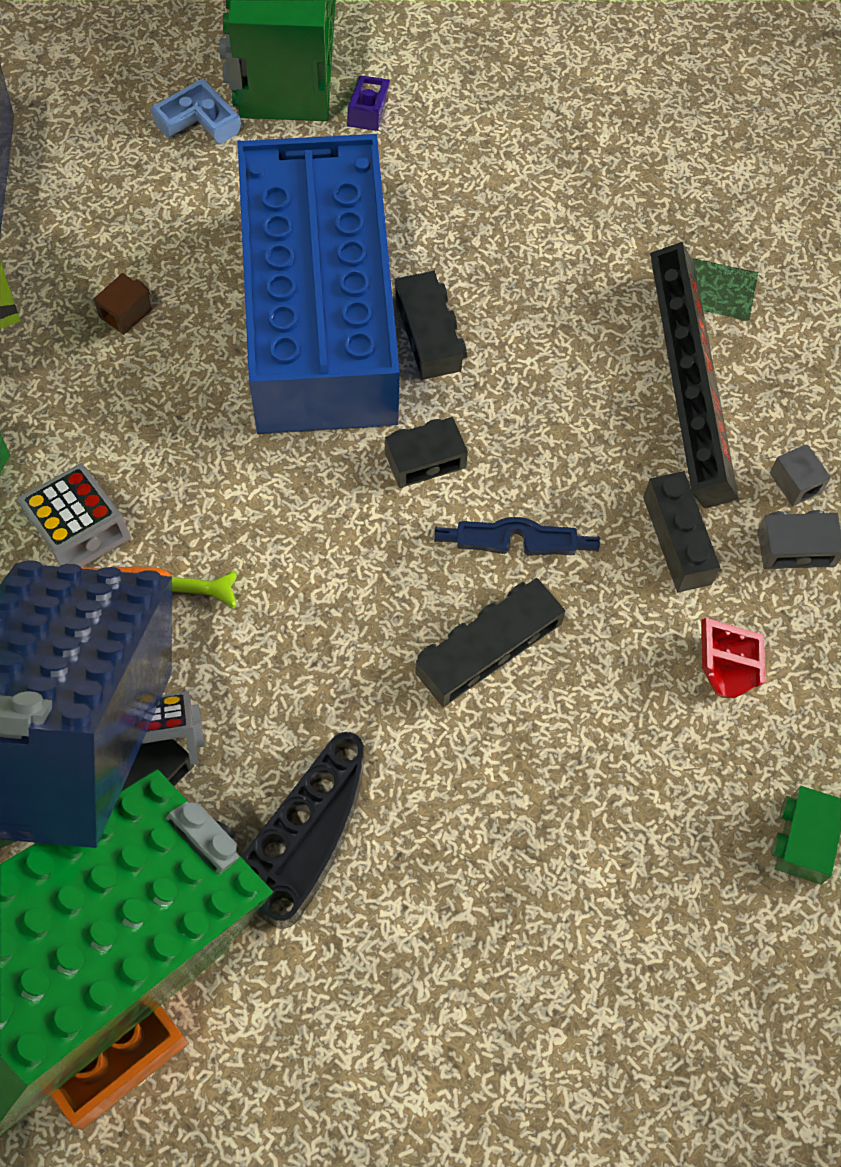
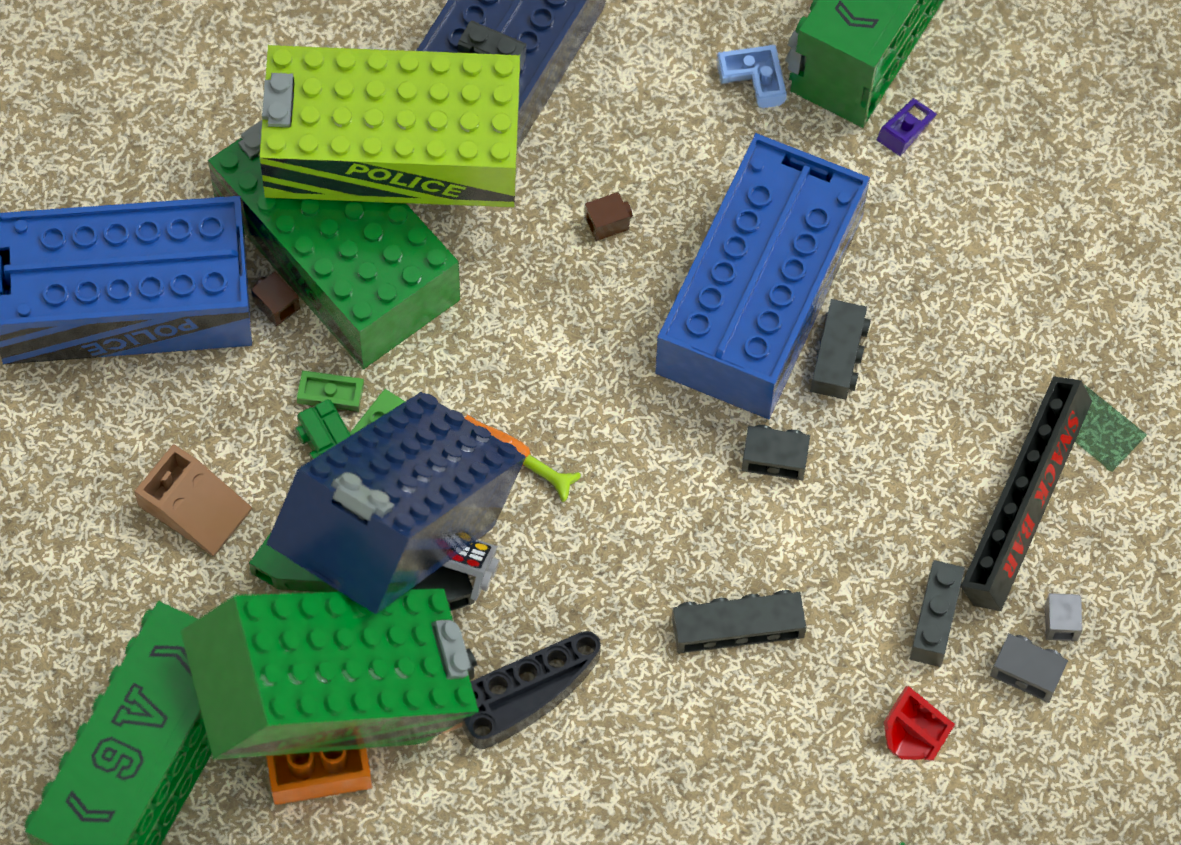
camera: 30 degrees right, 0 degrees up
(75, 517) = (481, 374): panel -> none
(537, 538) = (823, 564): dark blue piece -> none

